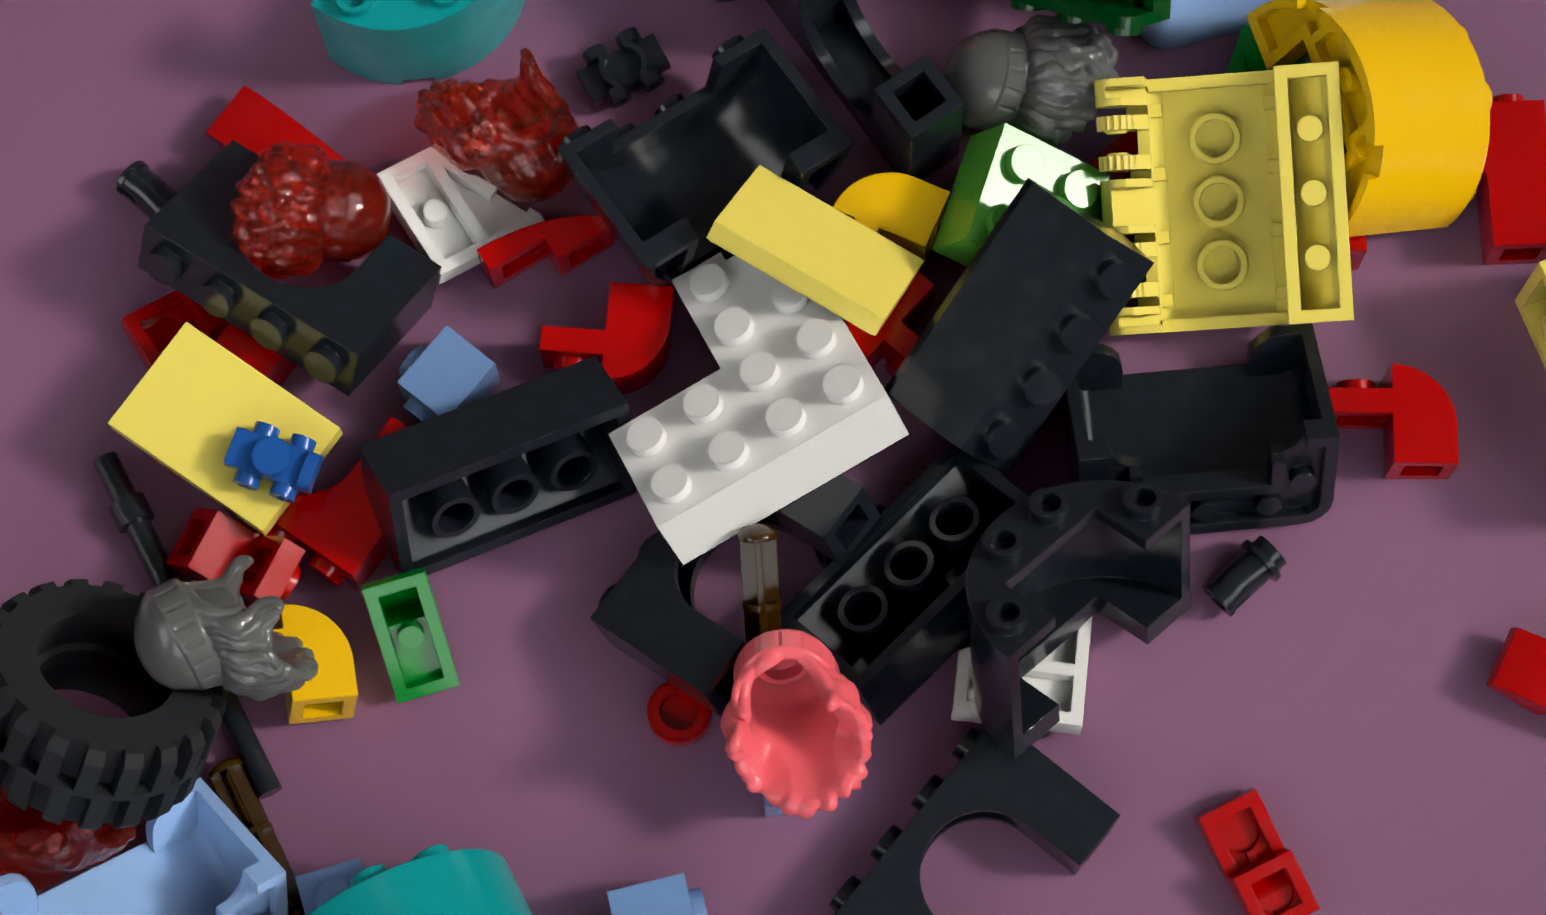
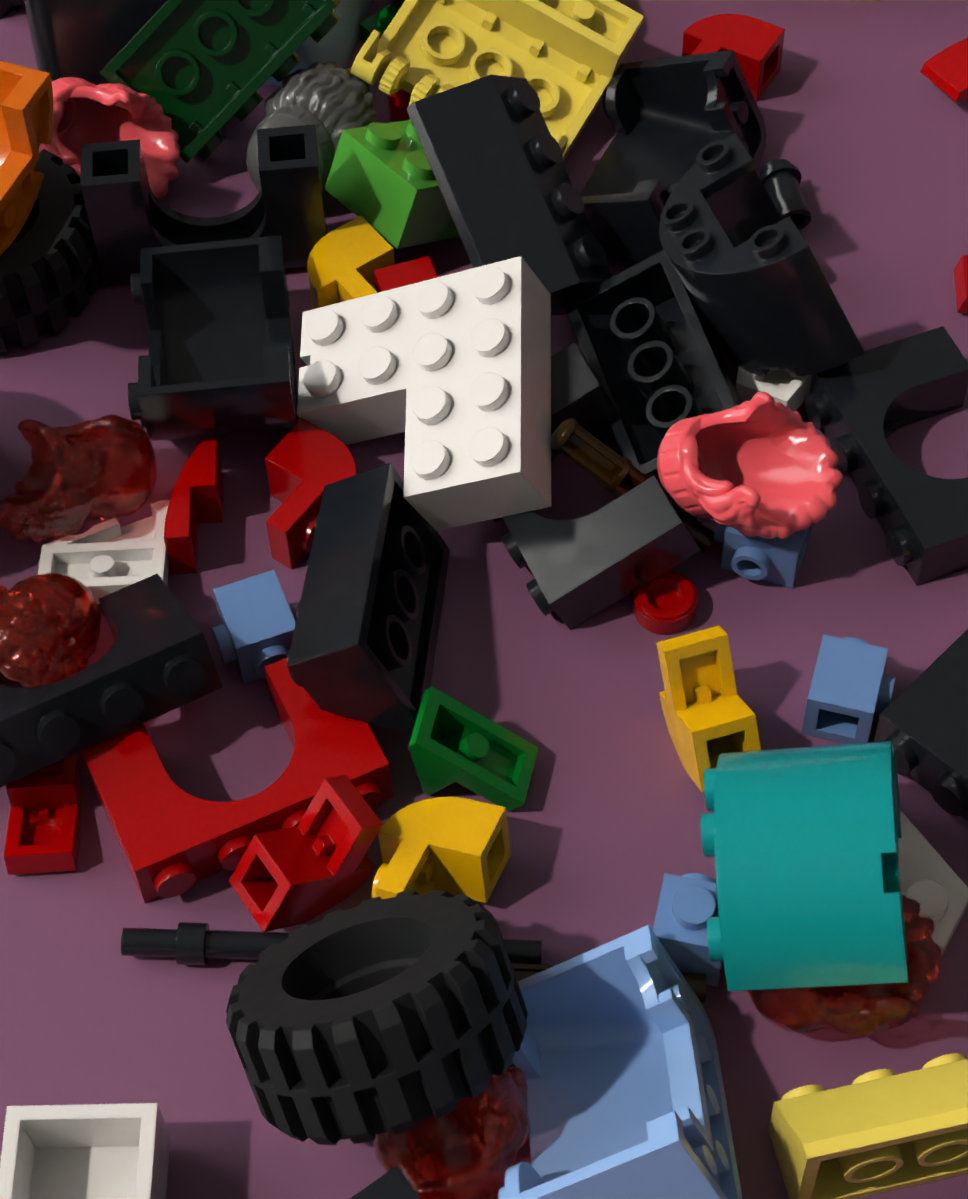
camera: 60 degrees left, 20 degrees down
(190, 411) = (181, 795): light yellow tile -> none
(207, 638) = (399, 847): dark grey hair -> none
(265, 456) = (245, 750): blue piece -> none
(556, 814) = (703, 701): none -> yellow brick
(623, 72) = (85, 392): black piece -> none
(815, 250) = (355, 285): light yellow tile -> none

